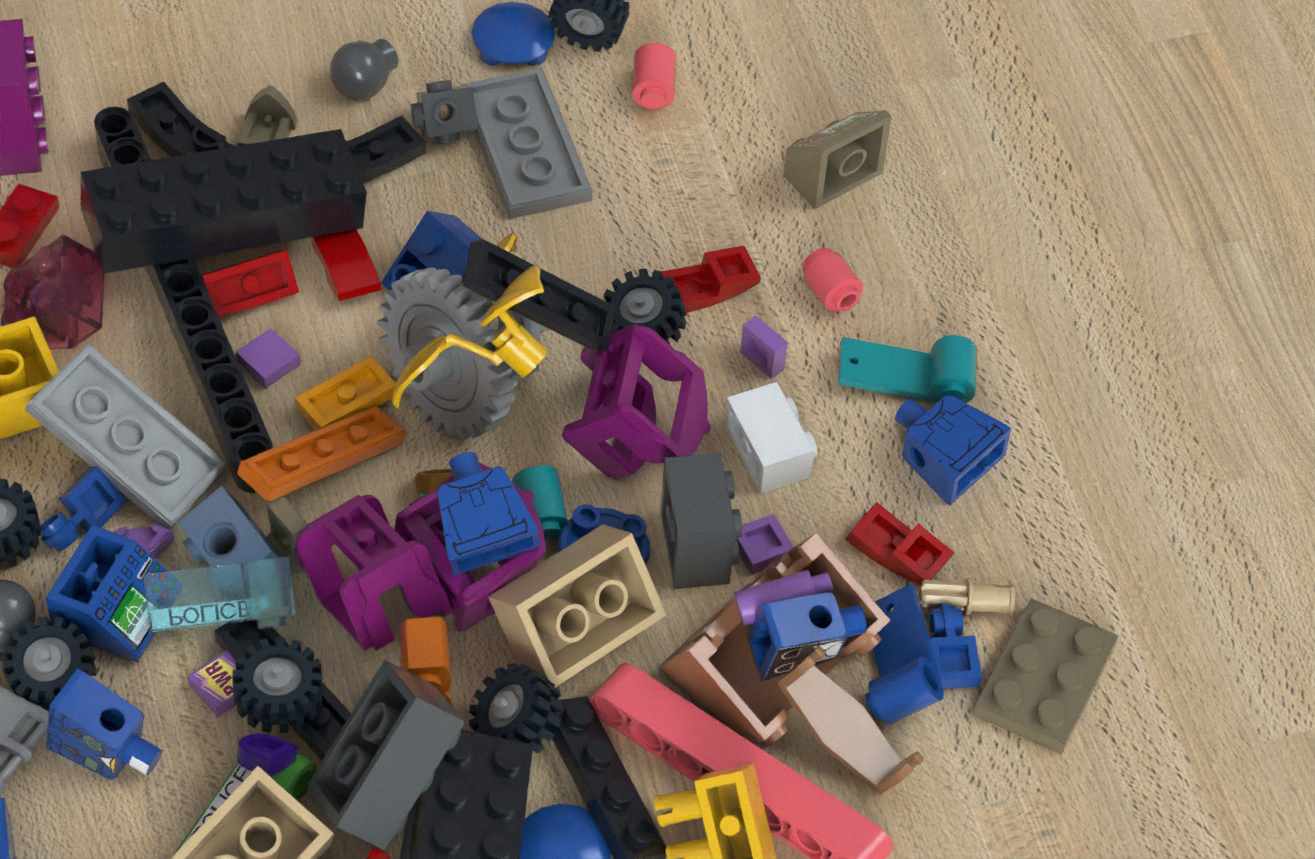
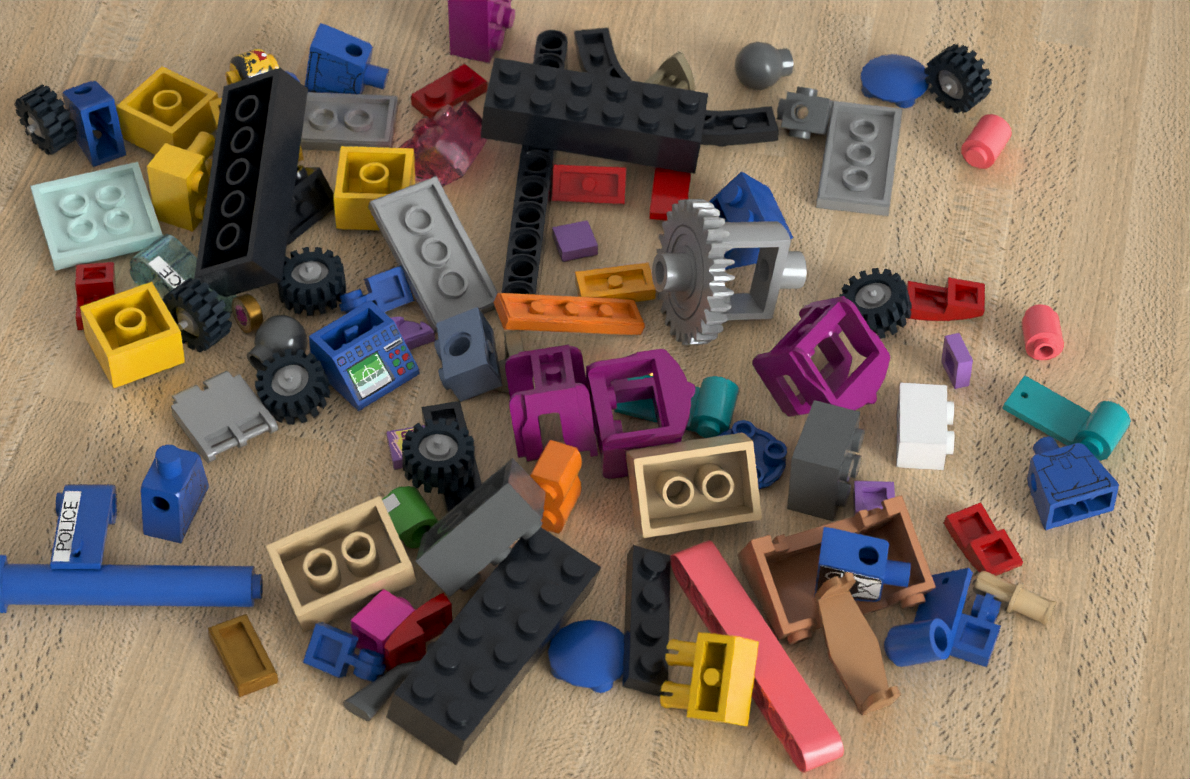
camera: 30 degrees right, 5 degrees down
(98, 729) = (297, 438): blue torso -> none
(221, 595) = (436, 382): clear light blue door -> none
(266, 752) = (400, 496): dark purple tile -> none
(483, 516) = (642, 387): blue torso -> none
(512, 341) = (732, 269): yellow plant -> none
(517, 706) = (608, 539): black wheel -> none
(559, 308) = (770, 244): black plate -> none
(784, 588) = (866, 527): medium lavender cylinder -> none
(838, 157) = (1099, 246): dark tan slope -> none
(1045, 675) = (1047, 680): dark tan plate -> none

